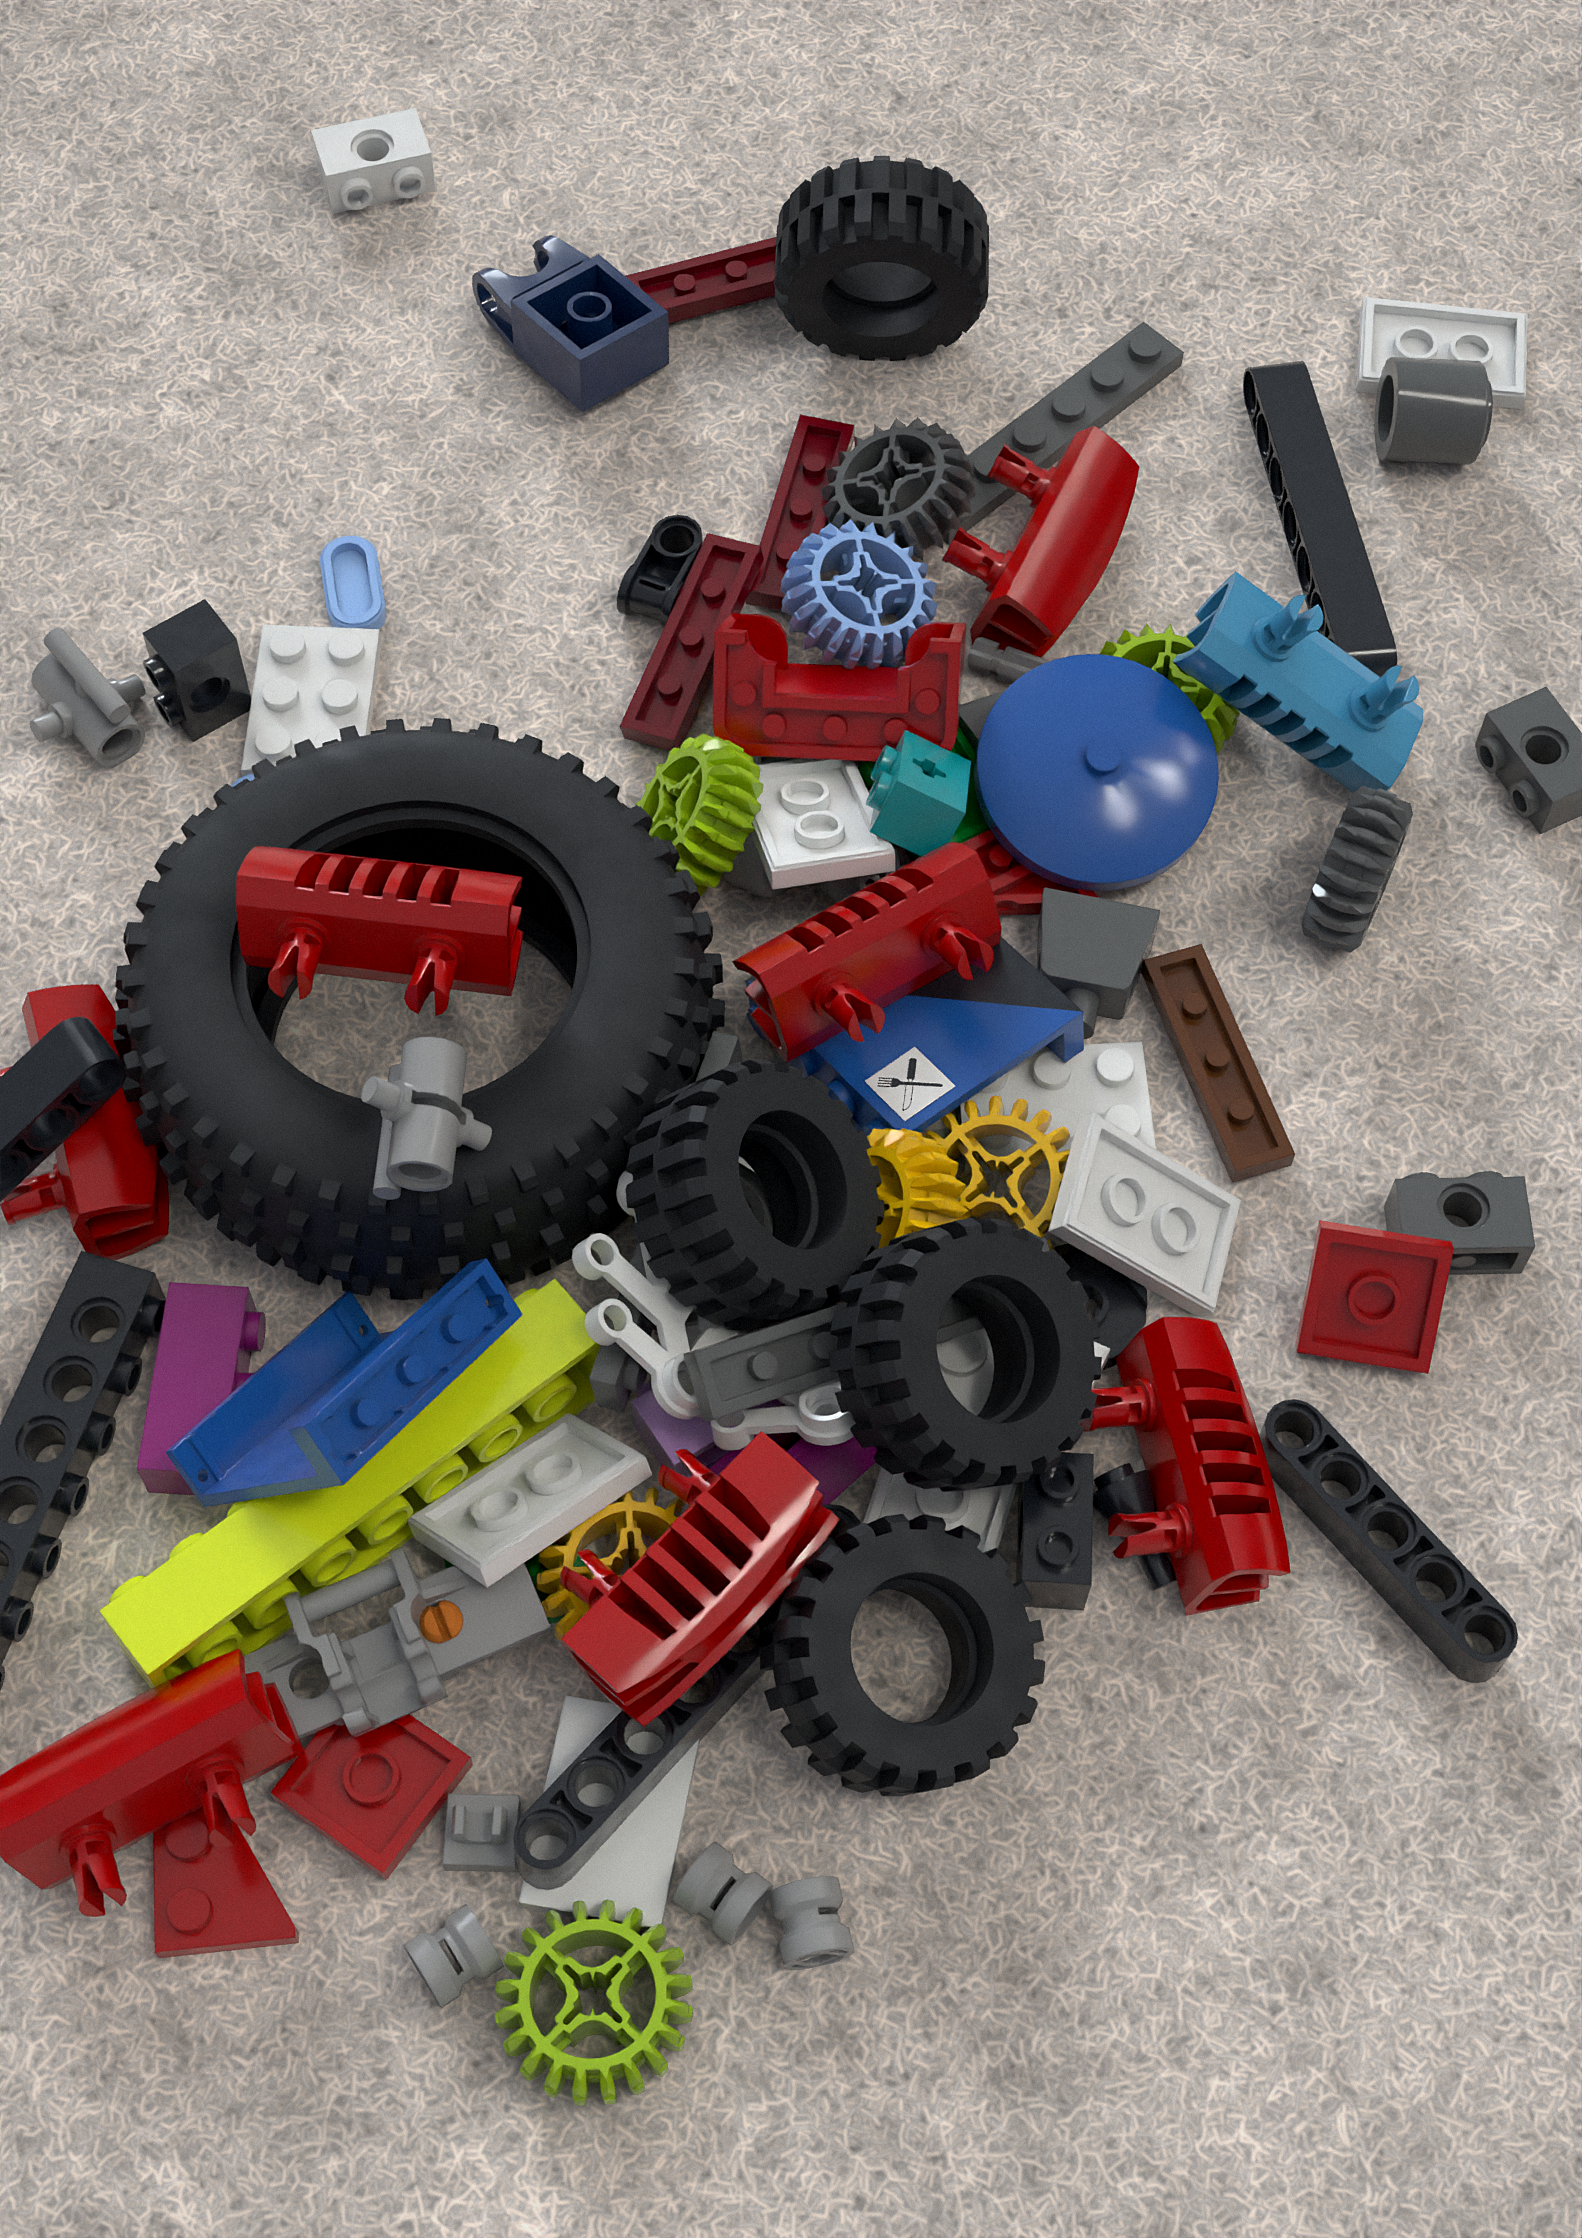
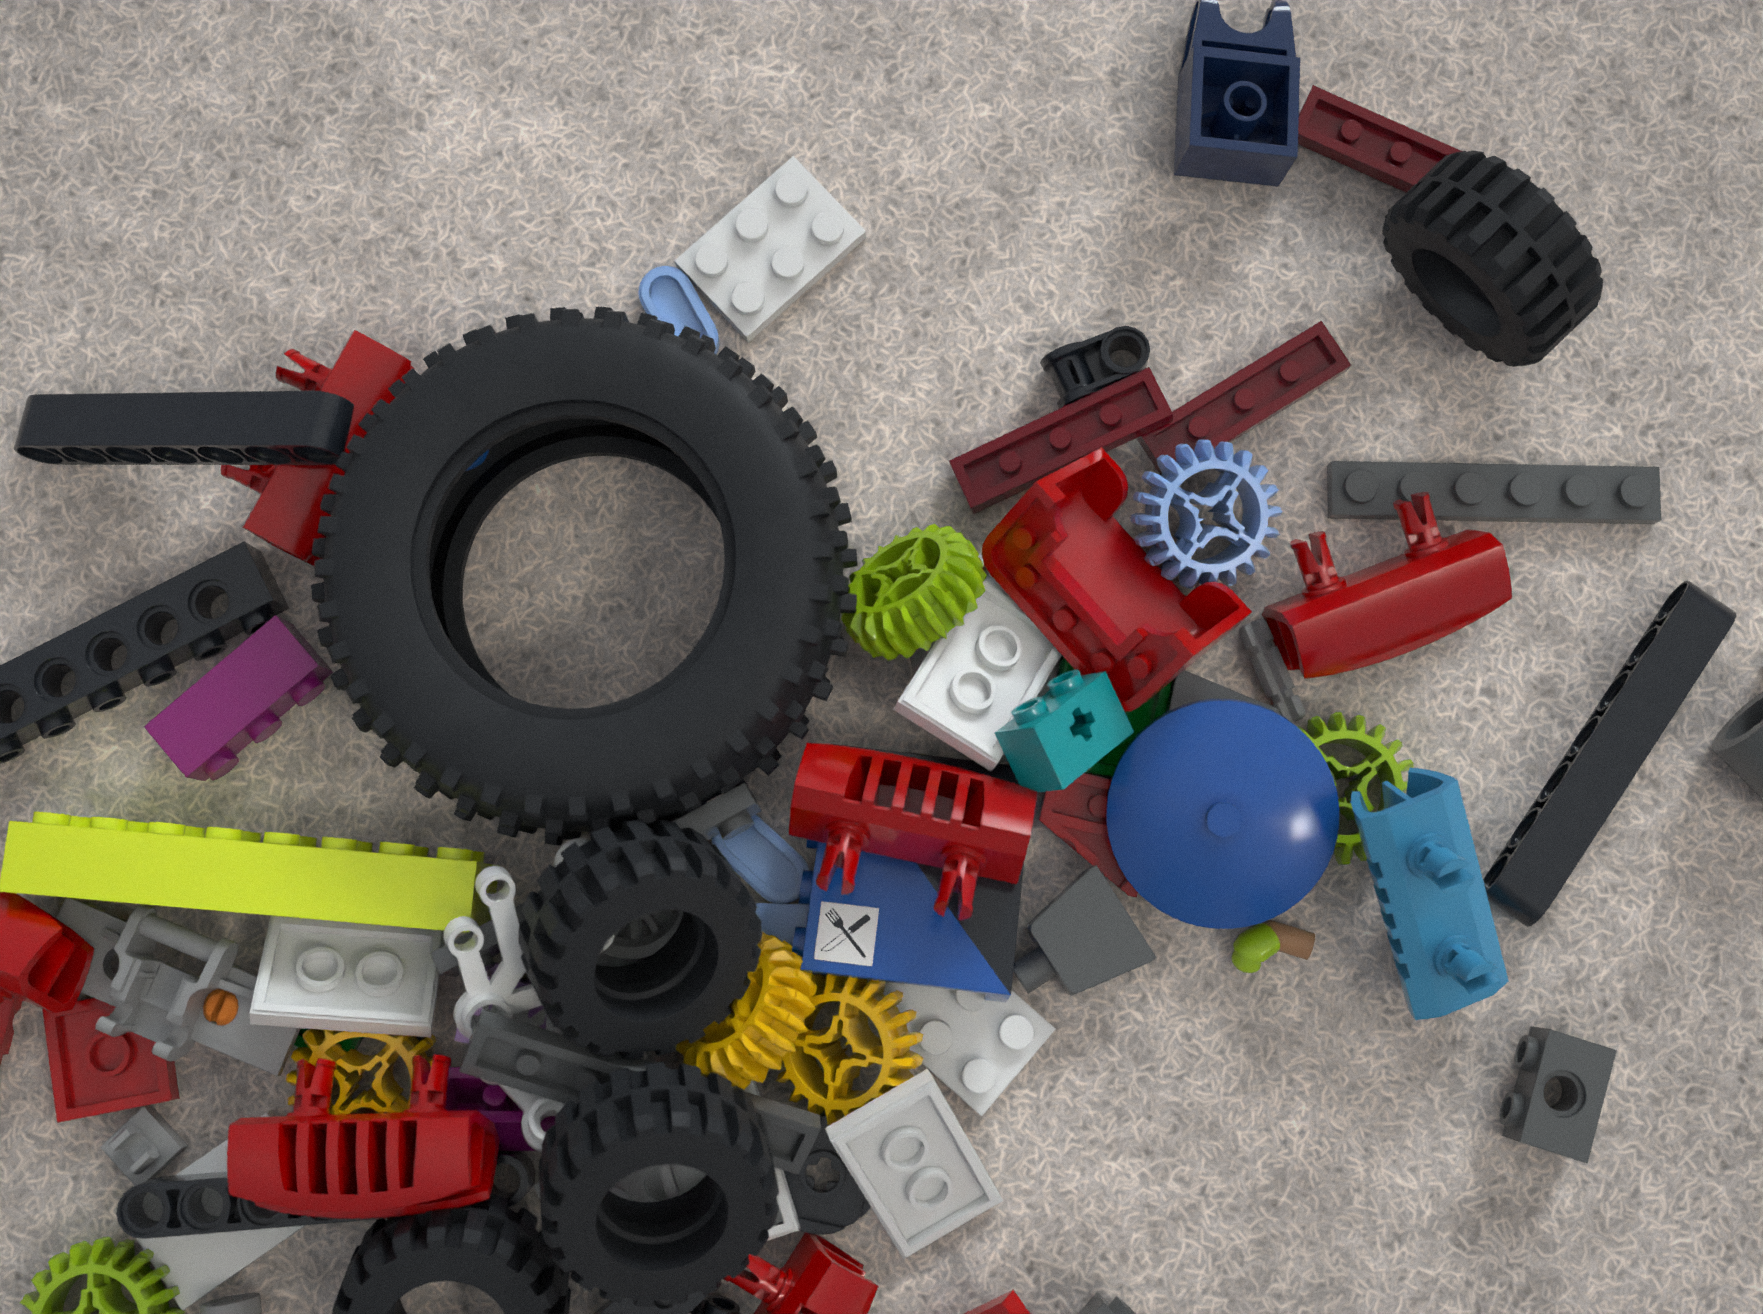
camera: 45 degrees right, 20 degrees up
(86, 703) = (620, 117): light grey pin -> none
(196, 671) = (700, 161): black brick -> none
(340, 1394) = (273, 819): blue panel -> none
(352, 584) = (885, 176): light blue tile -> none
(378, 923) = (554, 527): red piece -> none
(422, 1118) = (438, 710): light grey pin -> none
(467, 1945) = (51, 1211): light grey wheel -> none
(904, 483) = (1320, 427): dark grey gear -> none
(1217, 1063) = (1089, 1092): reddish brown plate -> none
(1226, 845) = (1267, 939): none -> lime arm
(1356, 868) = (1325, 1059): dark grey gear -> none

